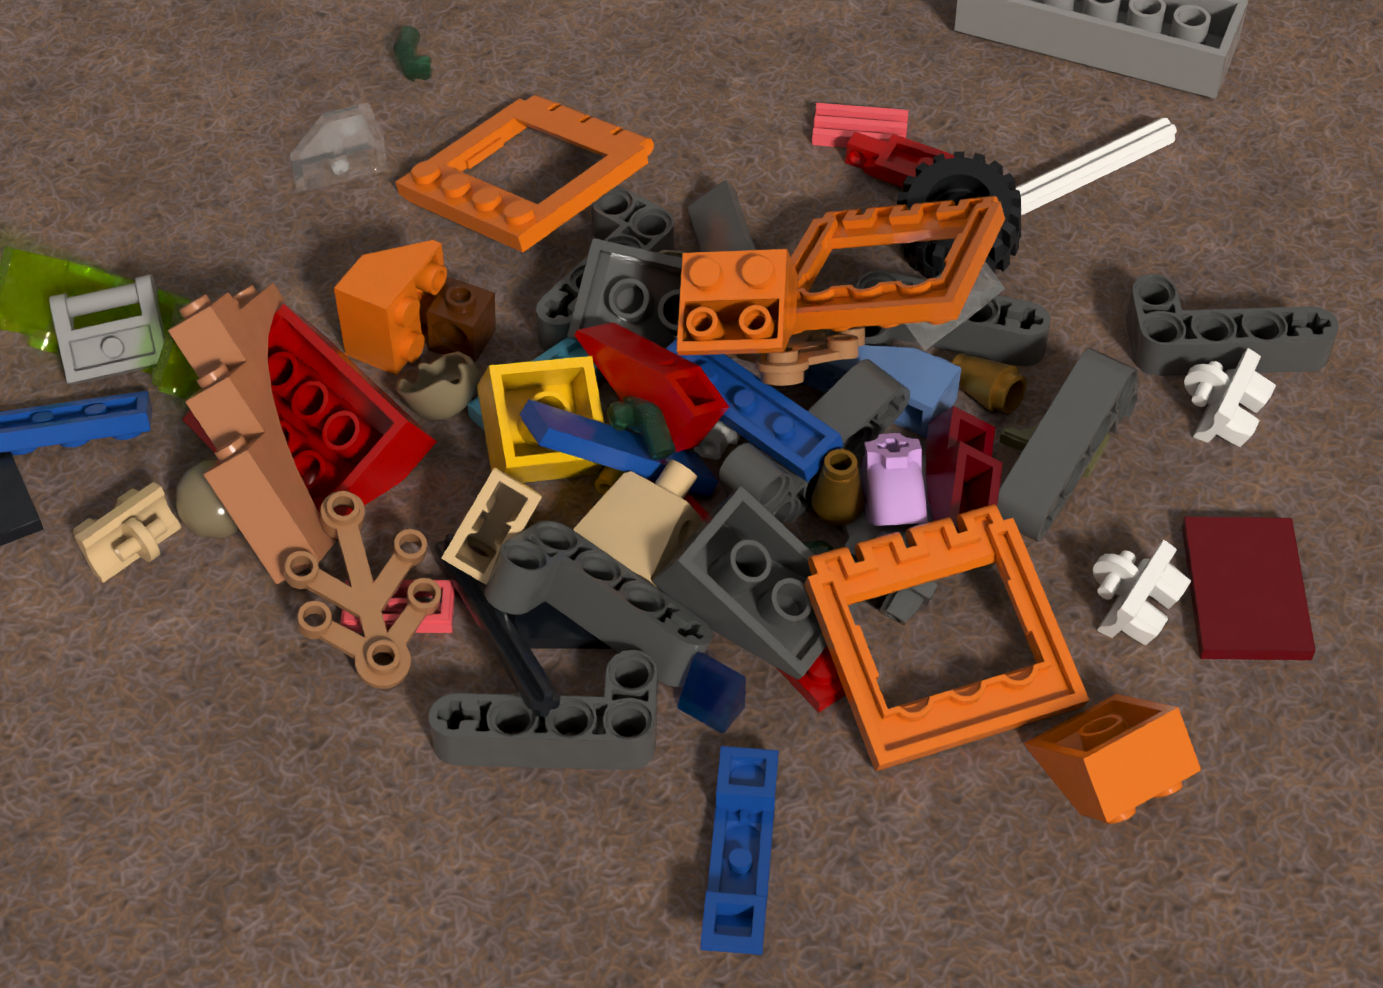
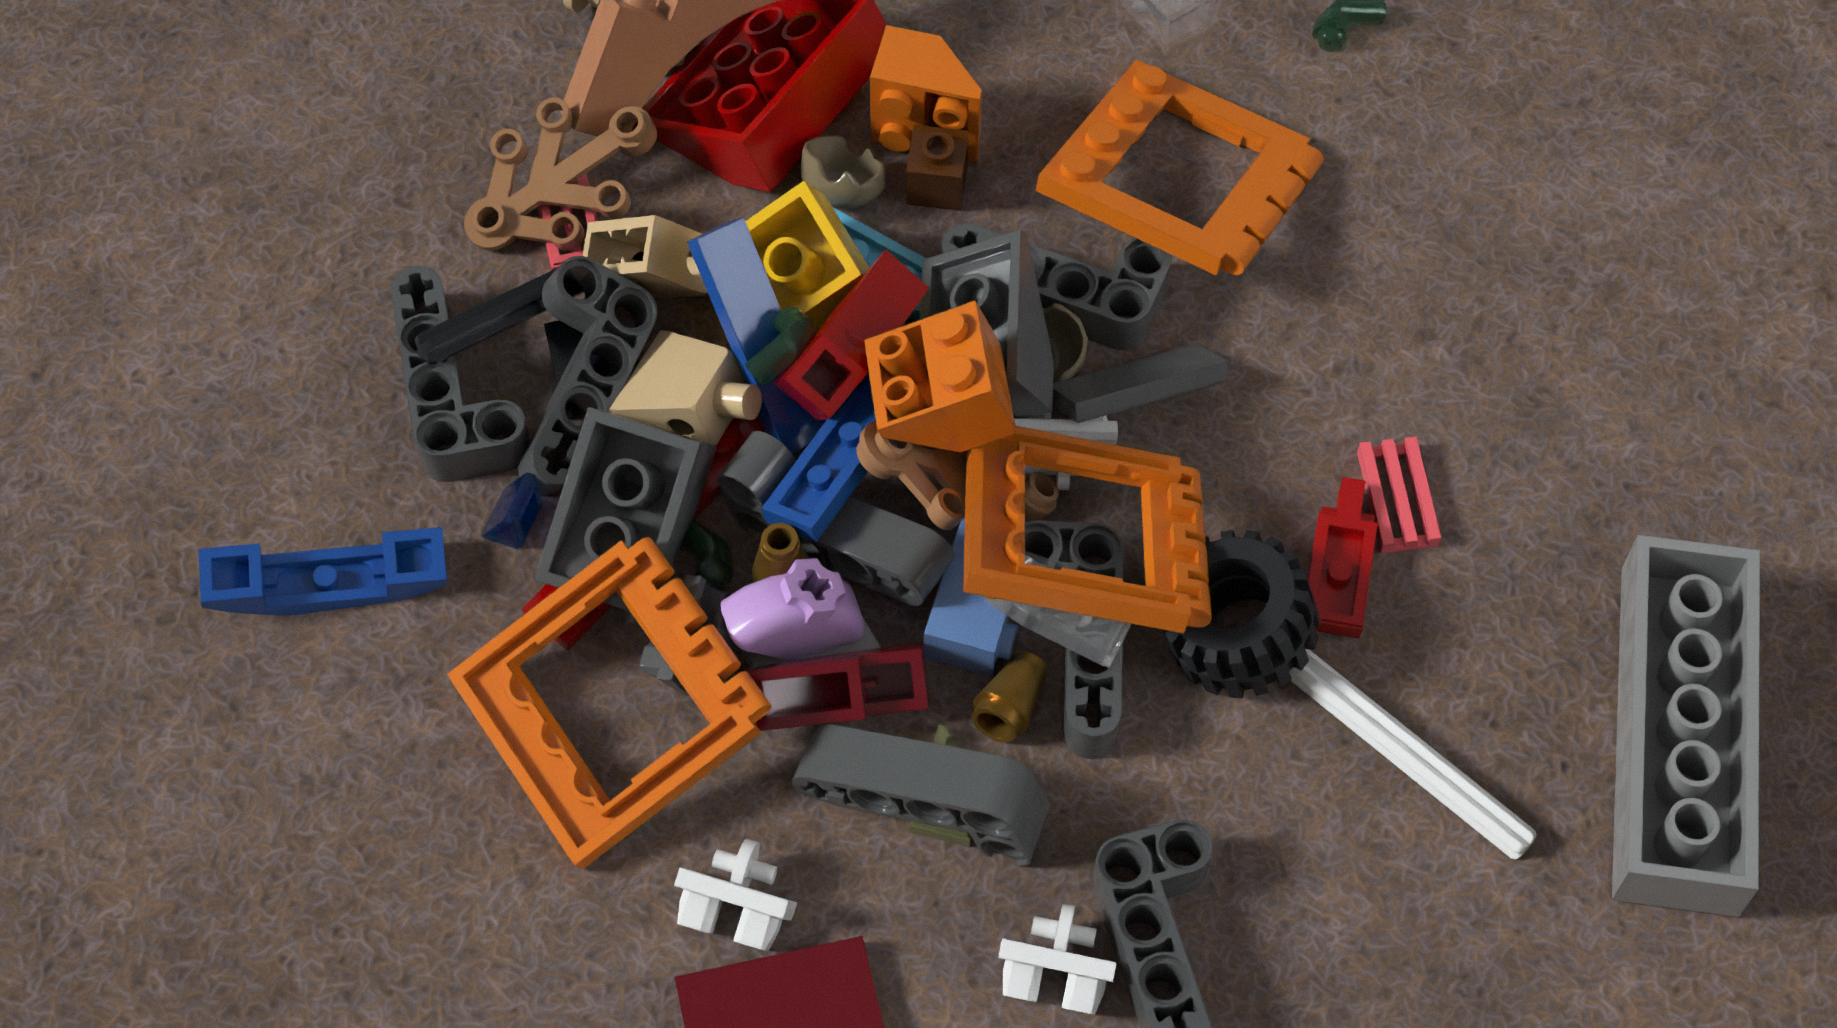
camera: 75 degrees right, 10 degrees up
(1117, 756) = (504, 897): orange slope -> none

